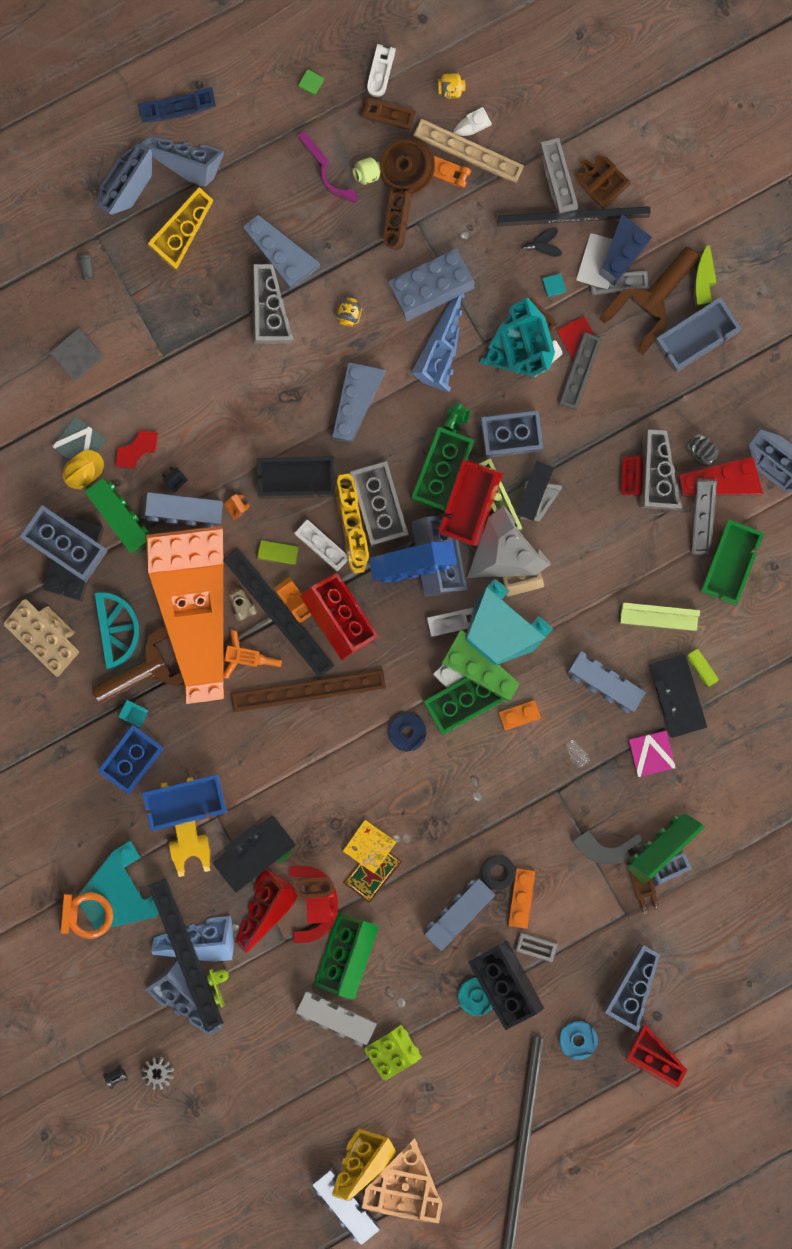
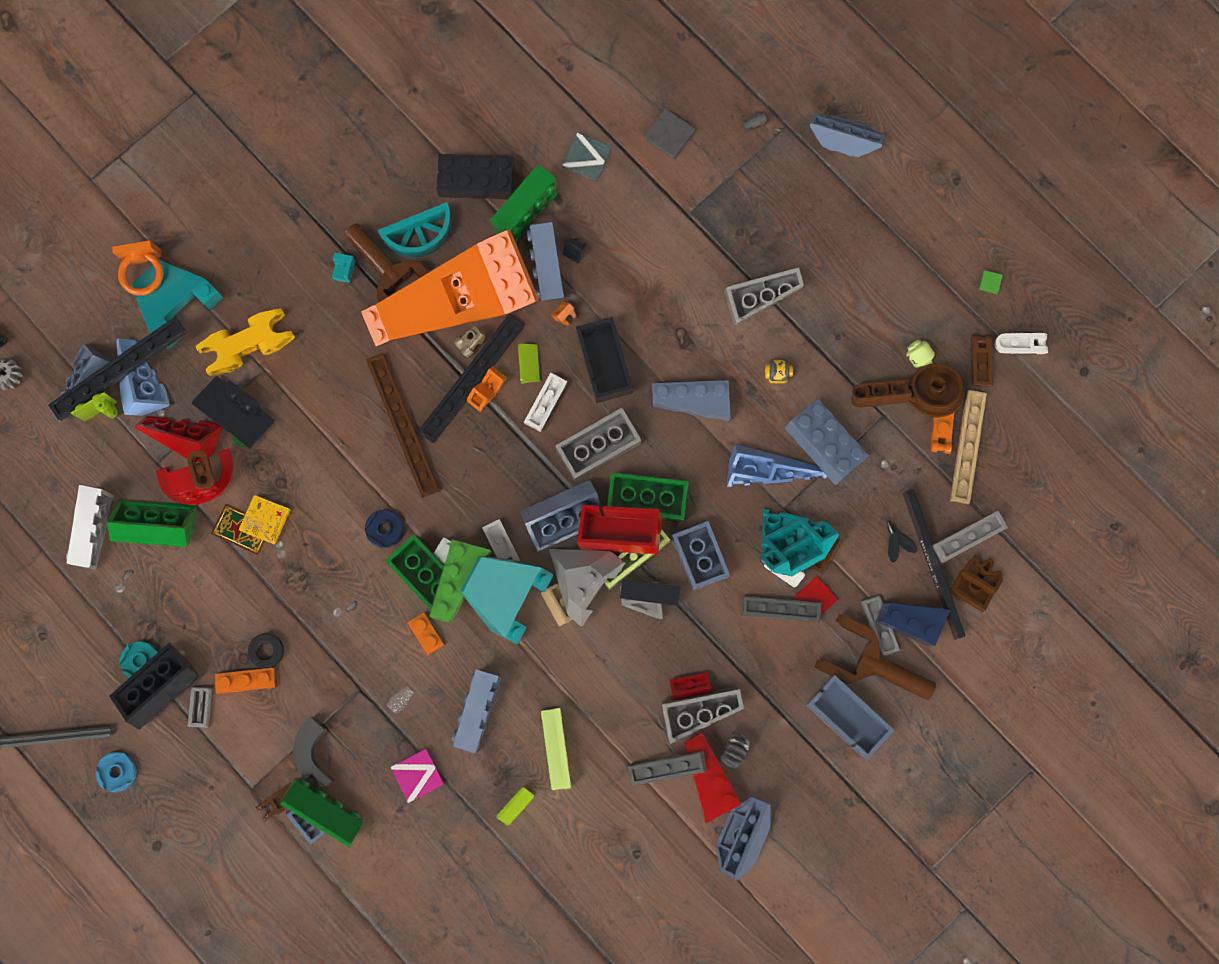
camera: 75 degrees right, 5 degrees down
(43, 635) = (398, 169): tan bracket -> none
(63, 543) = (482, 156): sand blue brick -> none
(83, 469) = (562, 165): yellow piece -> none
(131, 760) = (296, 275): blue brick -> none
(144, 443) = (587, 204): red tile -> none
(178, 106) = (929, 164): dark blue slope -> none
(178, 233) = (815, 196): yellow wedge -> none
(184, 802) = (262, 331): blue piece -> none
(189, 162) = (880, 189): sand blue wedge -> none
(238, 655) = (420, 349): orange piece -> none
(288, 259) = (813, 299): sand blue wedge -> none
(339, 616) = (479, 433): red brick -> none
(349, 194) = (910, 313): magenta piece -> none
(349, 511) = (561, 423): yellow piece -> none
(393, 1053) = (67, 593): lime bracket -> none
(413, 562) = (547, 488): blue brick -> none
(451, 86) = (1027, 412): yellow head -> none
(456, 415) = (704, 498): green plate -> none
(459, 914) = (211, 621): sand blue piece -> none
(472, 123) = (996, 444): white plate -> none
(554, 285) = (859, 562): teal tile -> none
(593, 261) = (894, 593): white sticker -> none
(633, 987) = (175, 813): sand blue wedge -> none
(655, 1059) = (108, 854): red wedge -> none
(677, 696) = (481, 787): black bracket -> none
(704, 279) = (907, 710): lime slope -> none
(731, 563) = (627, 809): green piece -> none

